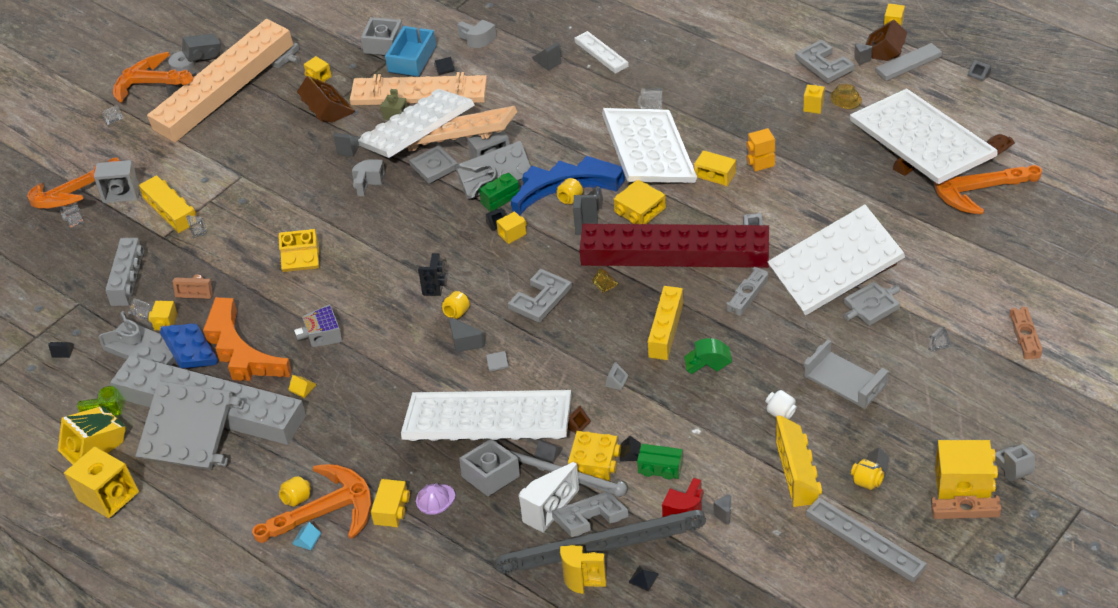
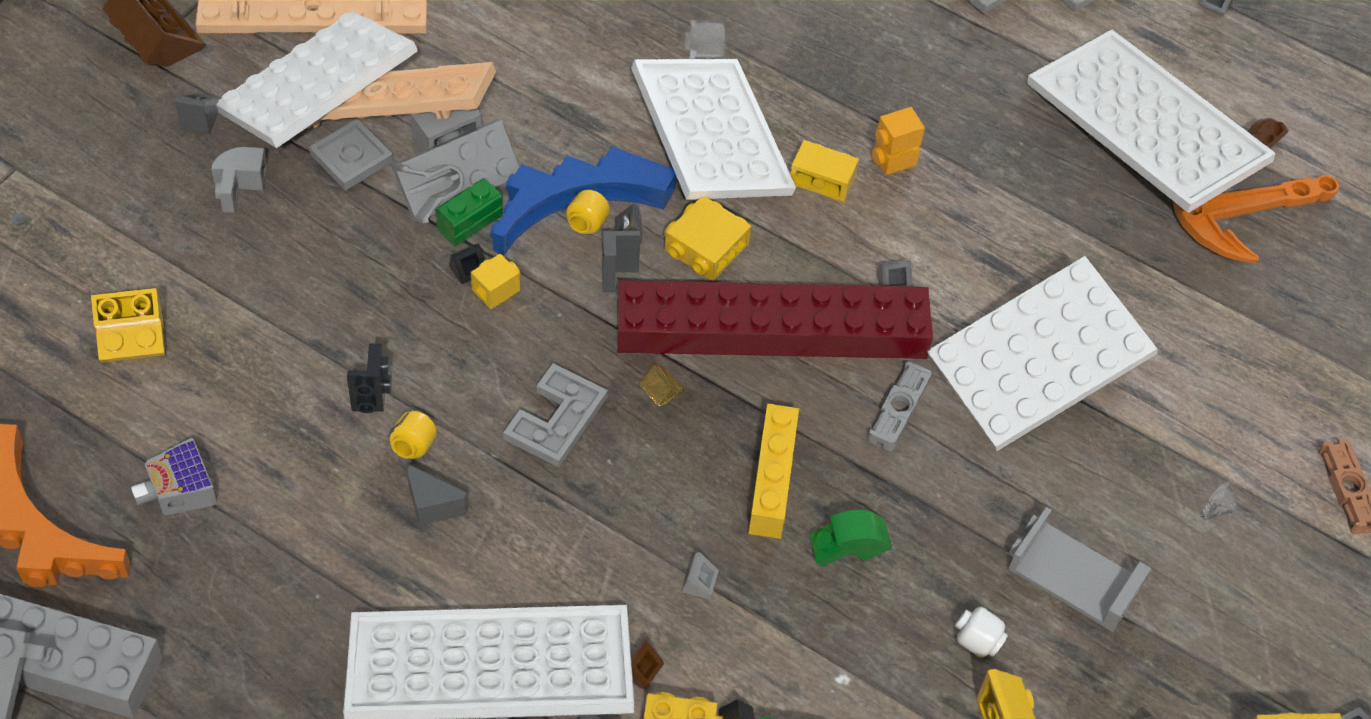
camera: 15 degrees left, 10 degrees up
(301, 386) = (150, 598): yellow slope -> none
(393, 105) = (273, 40): olive brick -> none
(497, 361) = (492, 544): light grey slope -> none
(813, 99) = (968, 45): yellow brick -> none
(846, 96) = (1015, 40): clear yellow piece -> none
(872, 303) = (1103, 431): light grey plate -> none
(902, 166) = (1120, 172): reddish brown slope -> none

